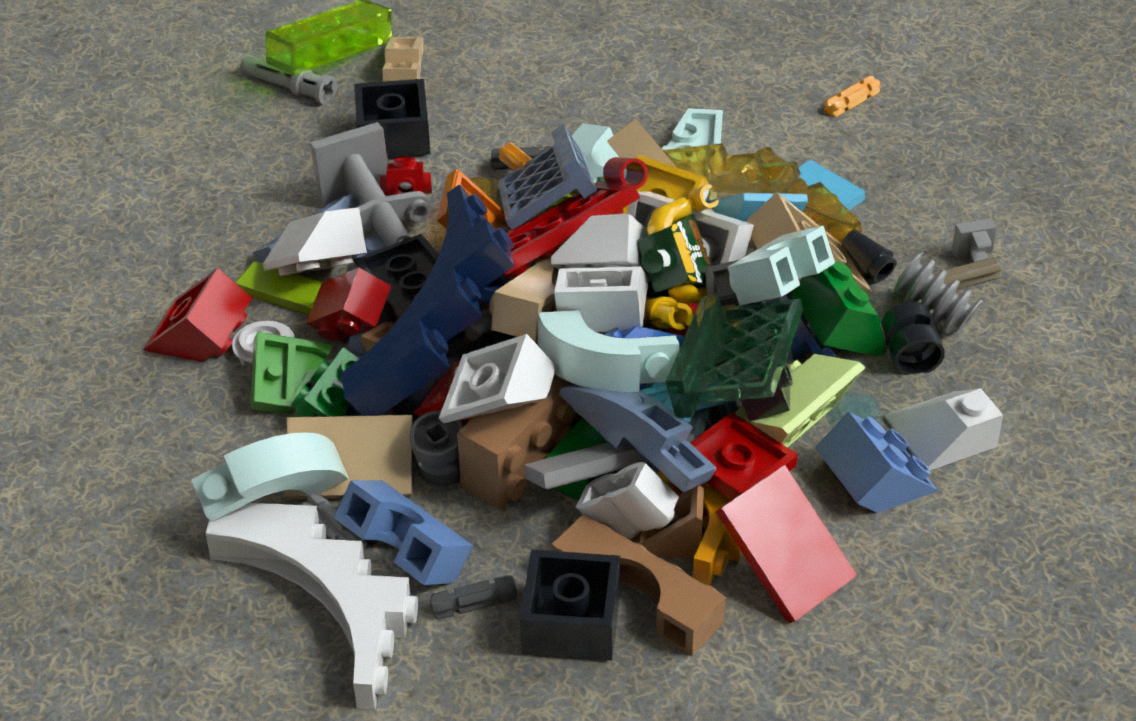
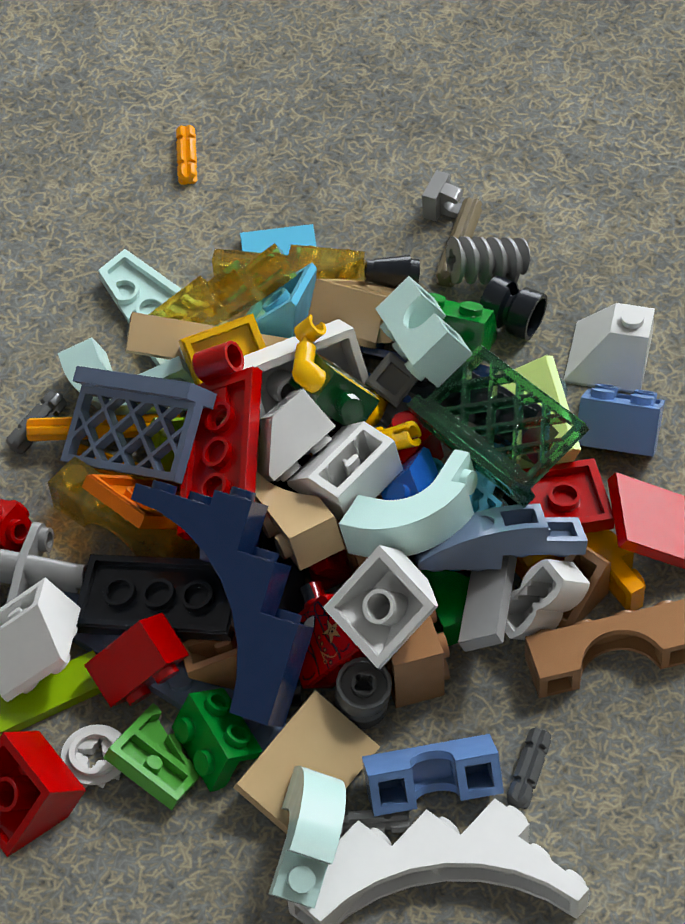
camera: 50 degrees left, 10 degrees up
(570, 605) = (608, 703): black brick -> none

